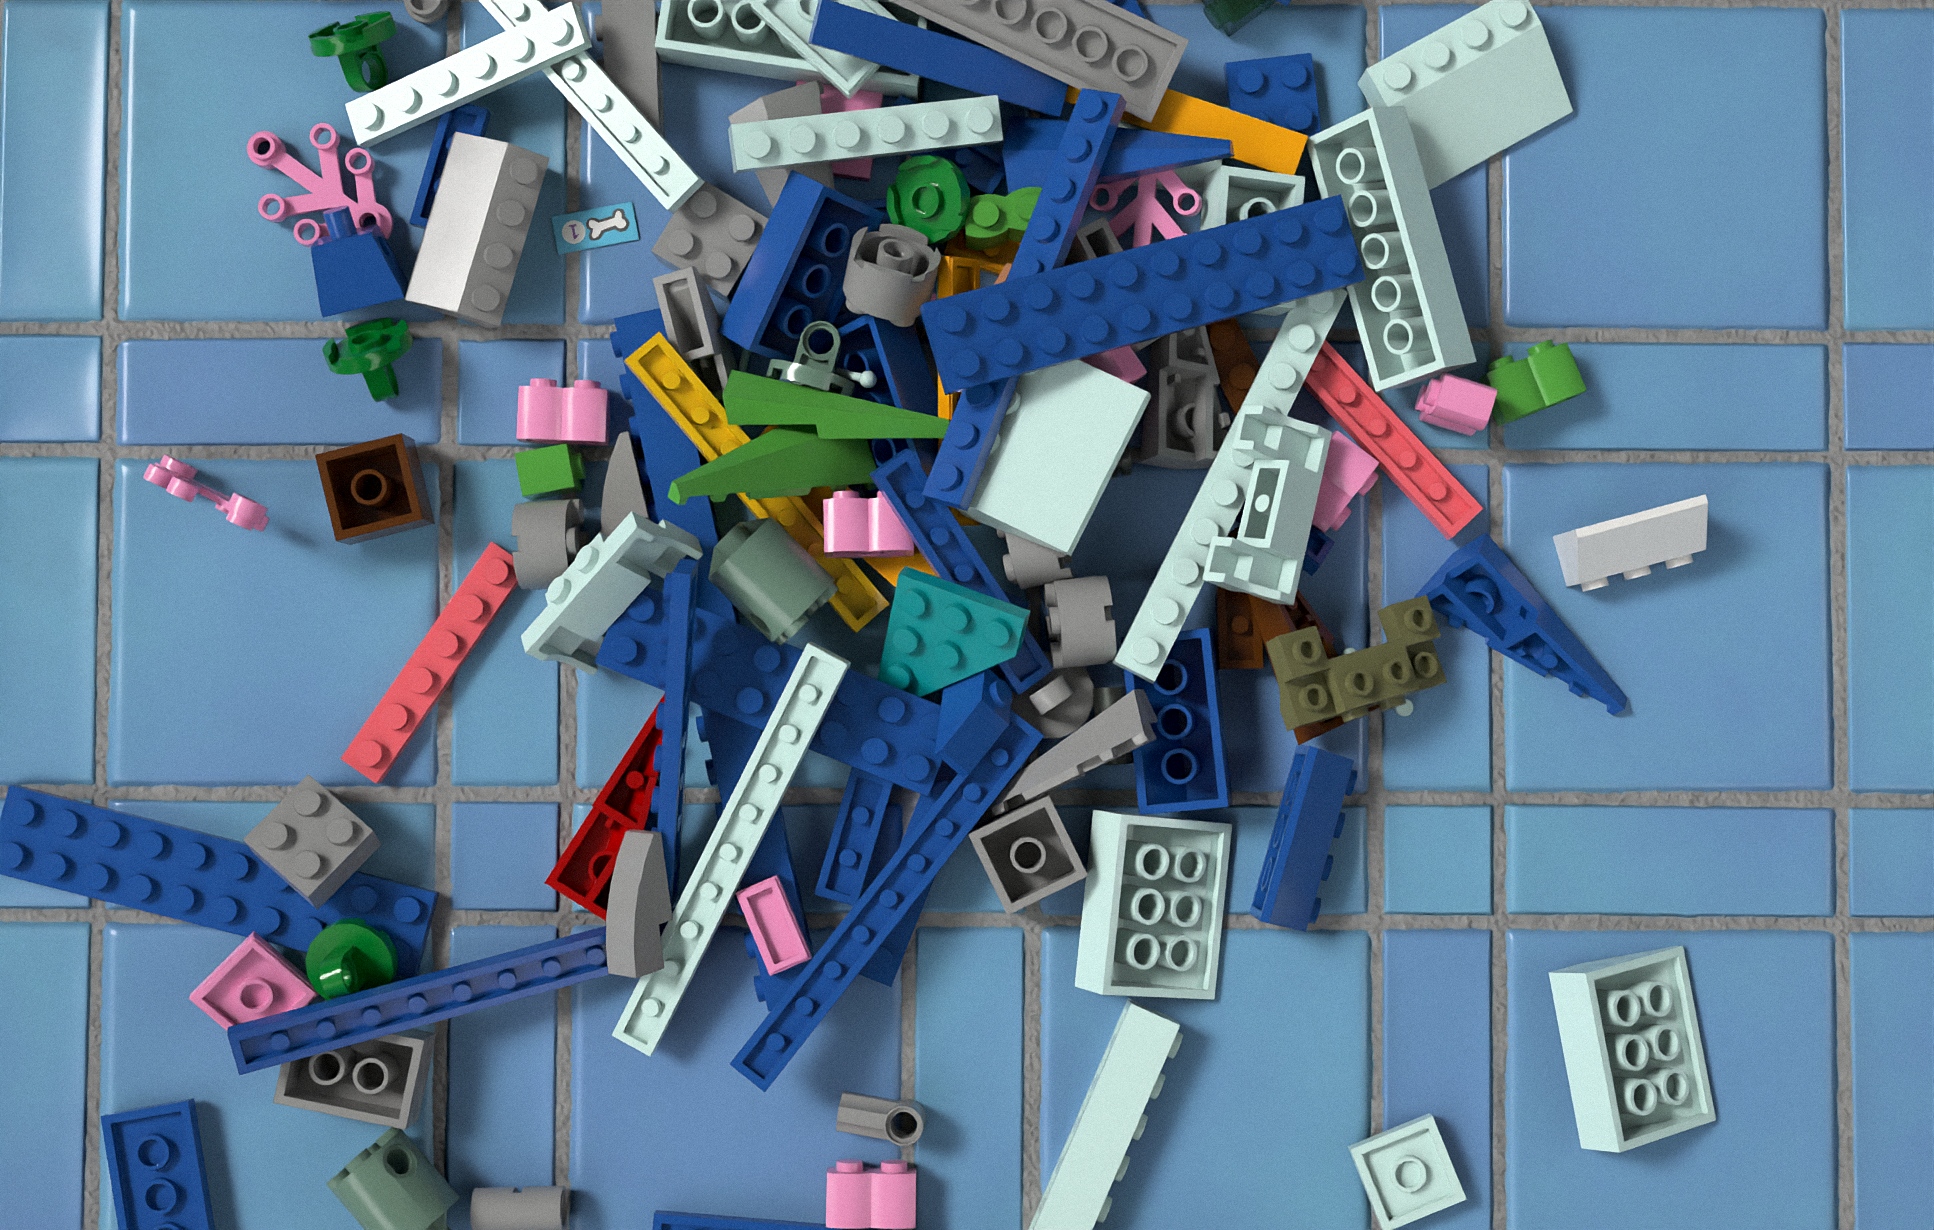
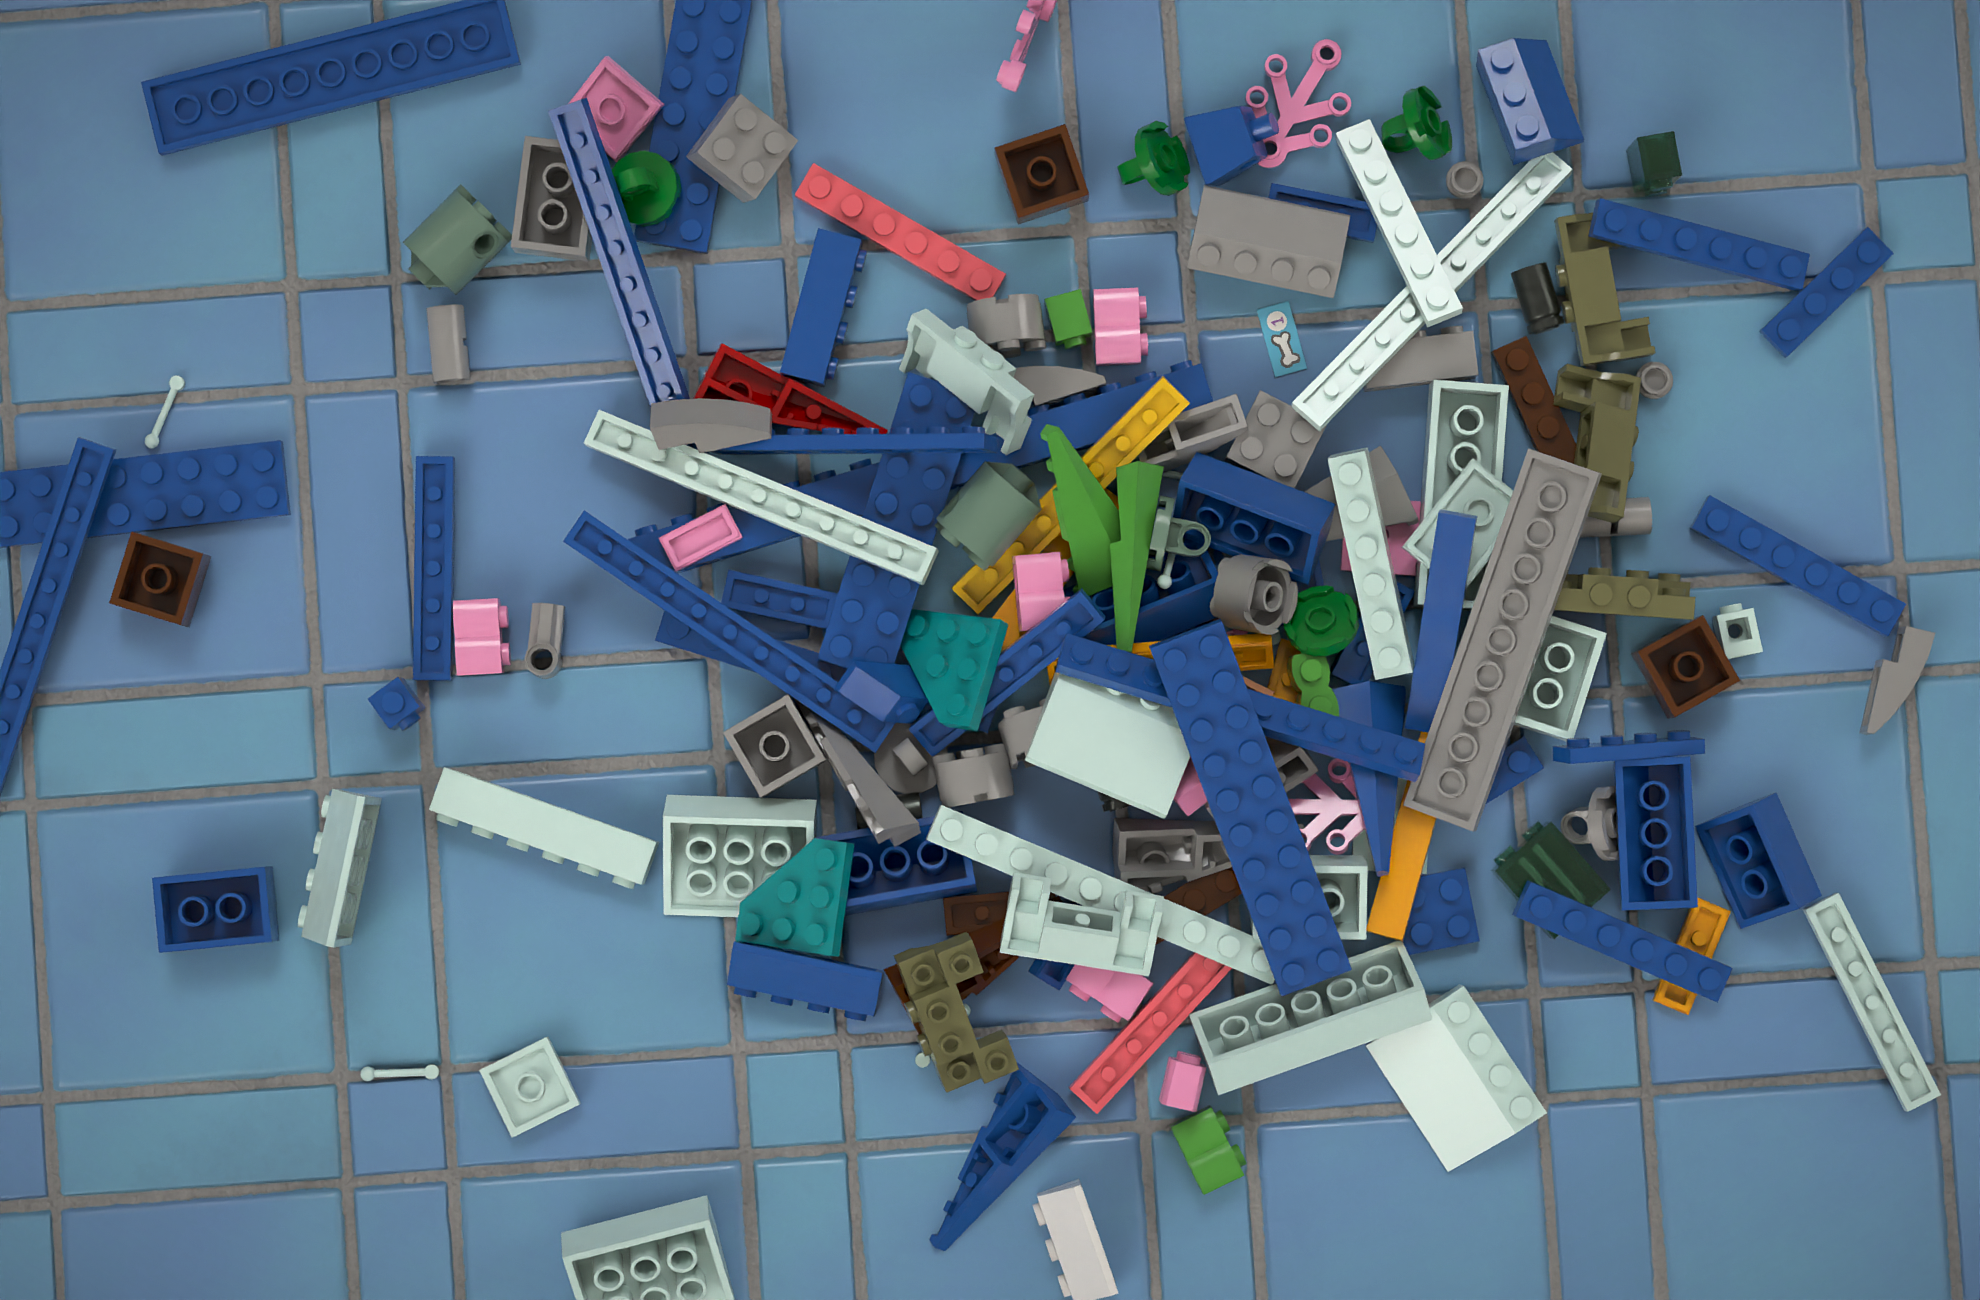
camera: 90 degrees right, 0 degrees up
(511, 760) = (822, 307): none -> blue brick
(1215, 835) = (801, 902): none -> teal plate

